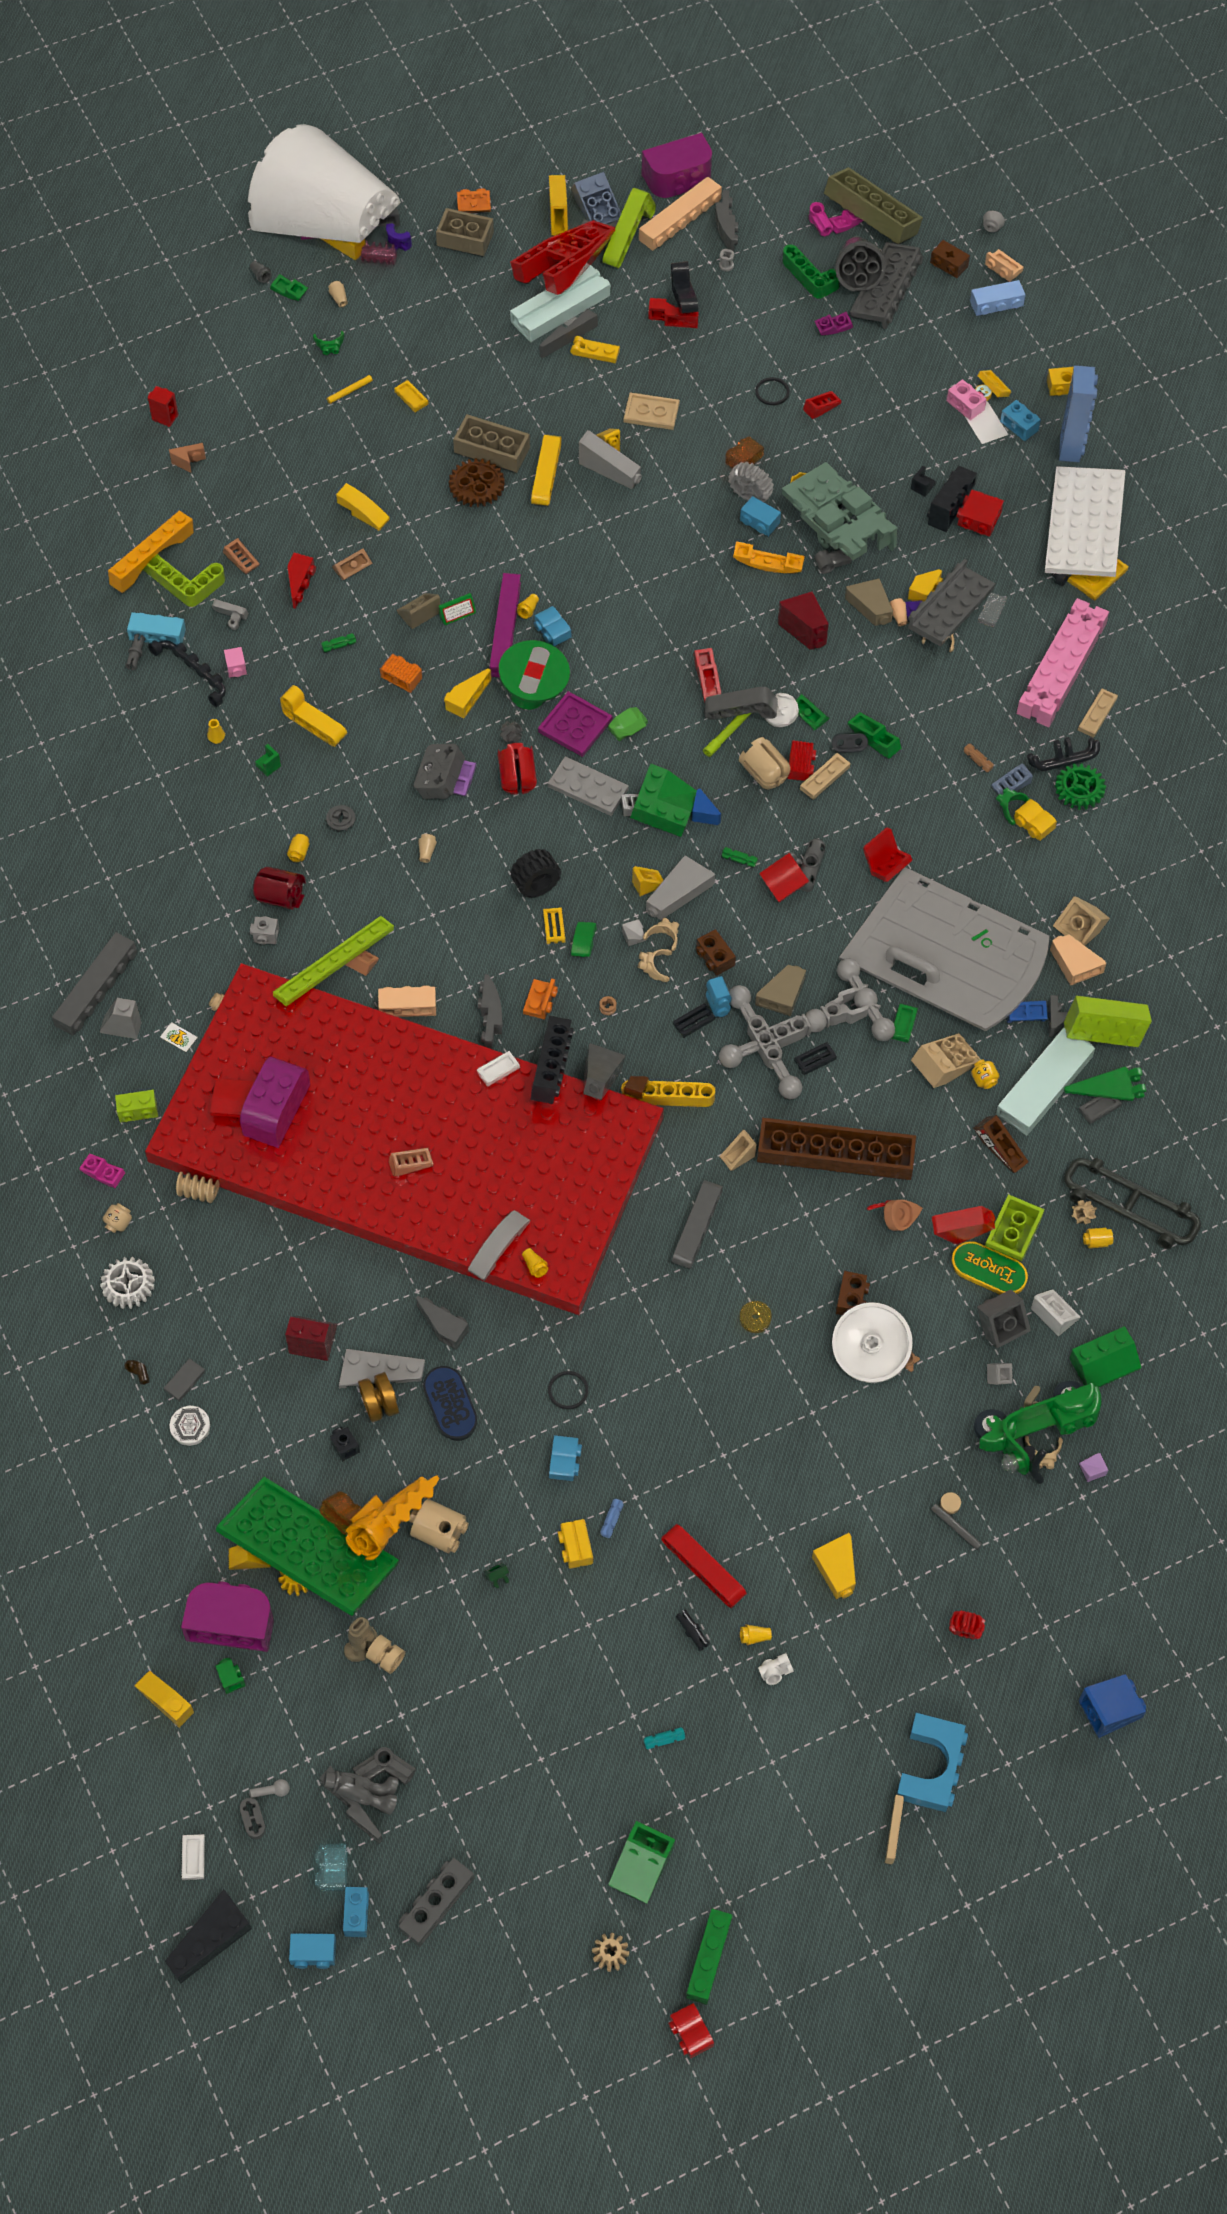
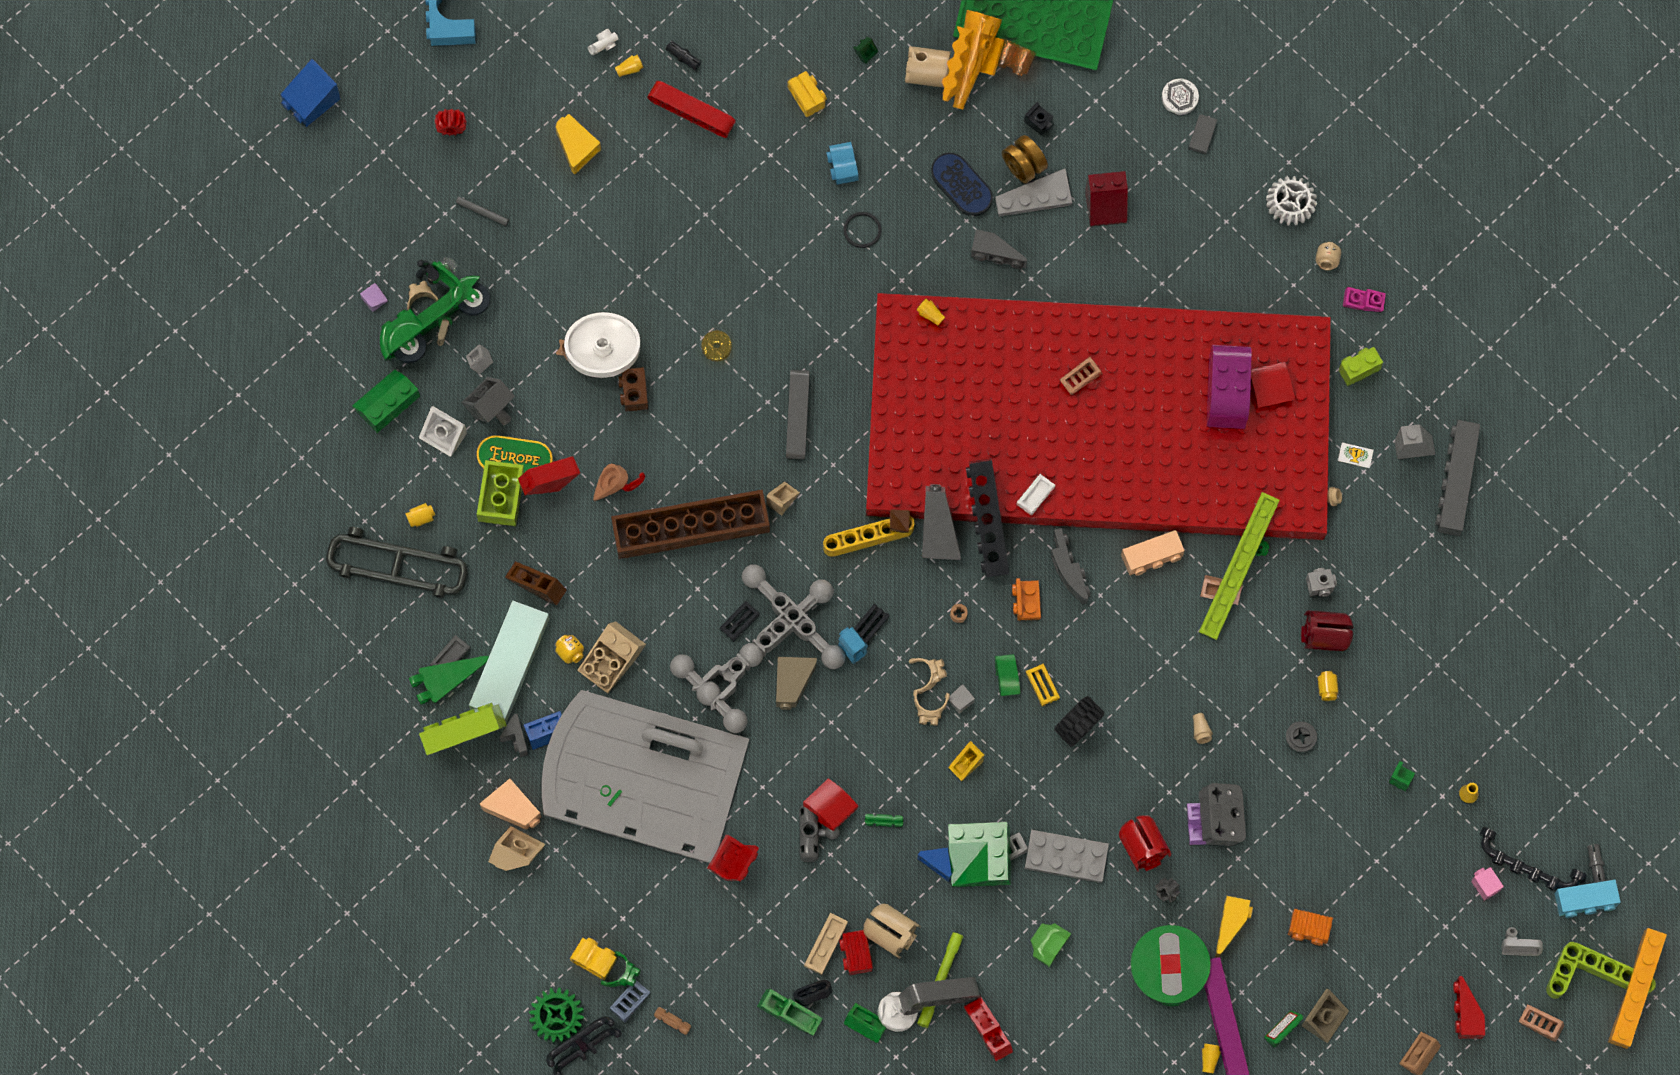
camera: 160 degrees right, 10 degrees up
(138, 1369) = (1246, 131): dark brown arm -> none
(196, 1188) = (1270, 304): tan piece -> none
(310, 718) = (1377, 840): yellow beam -> none
(338, 642) = (1392, 946): green axle -> none
(497, 1243) = (969, 323): light grey slope -> none
(553, 626) = (1174, 1037): dark azure brick -> none
(575, 724) = (1106, 924): magenta plate -> none
(611, 1518) = (784, 127): medium blue axle -> none
(679, 887) = (931, 764): light grey slope -> none
(719, 951) = (868, 704): reddish brown brick -> none
(904, 1022) = (664, 687): green tile -> none
(950, 1503) = (493, 229): tan tile -> none
(1084, 1215) = (439, 535): tan gear -> none

